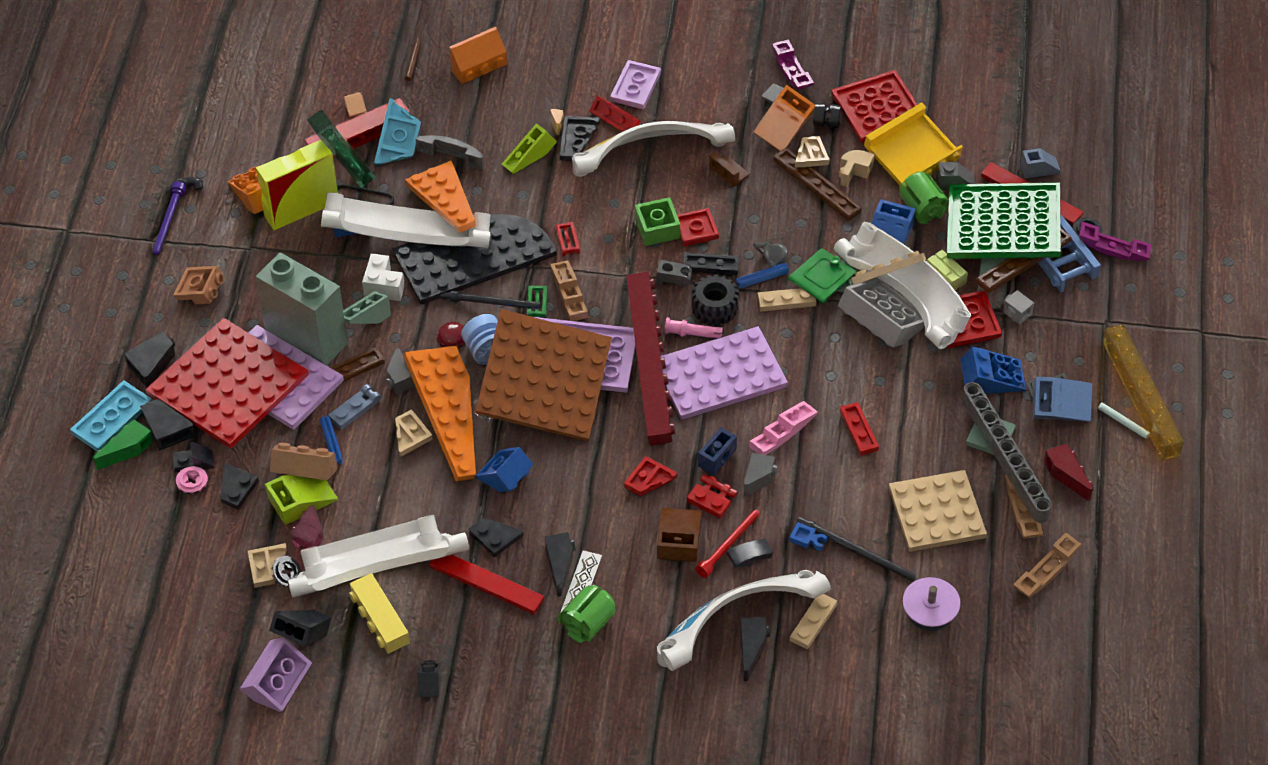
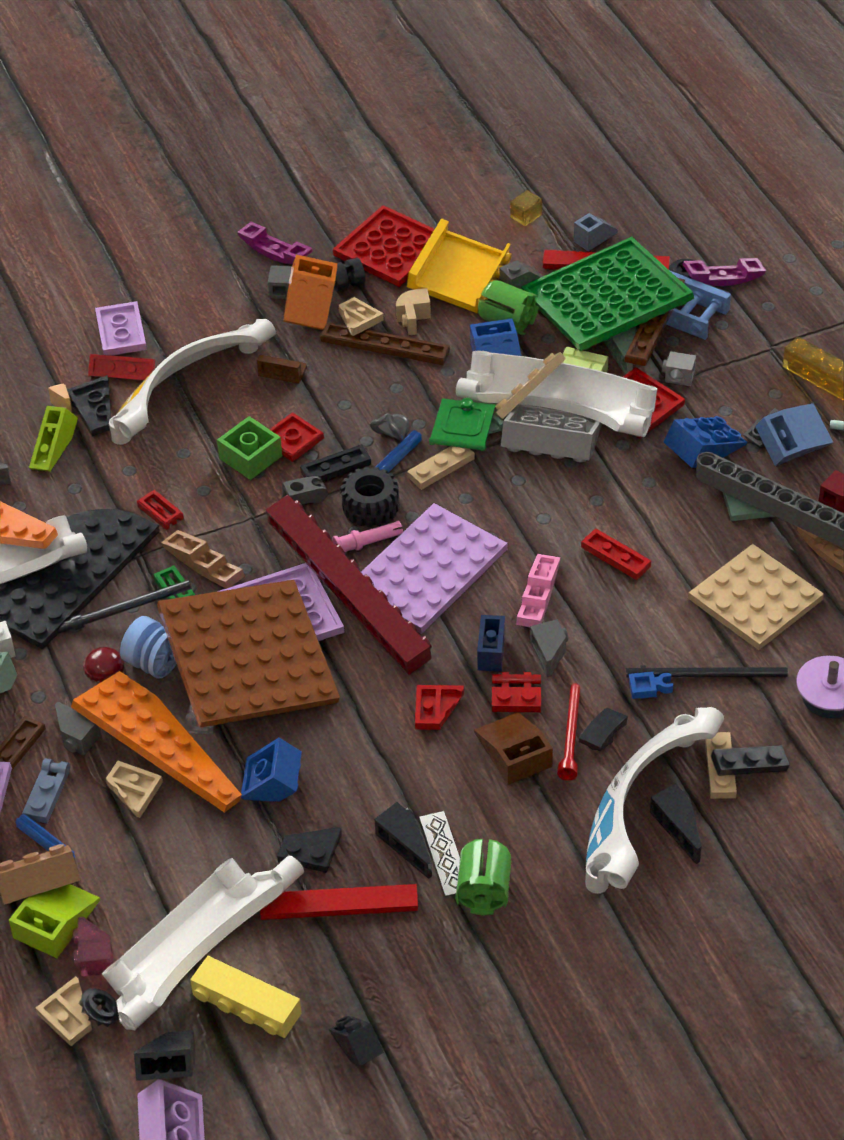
camera: 30 degrees left, 5 degrees down
(833, 628) = (750, 760): none -> black plate
(1002, 120) = (526, 208): none -> clear yellow panel

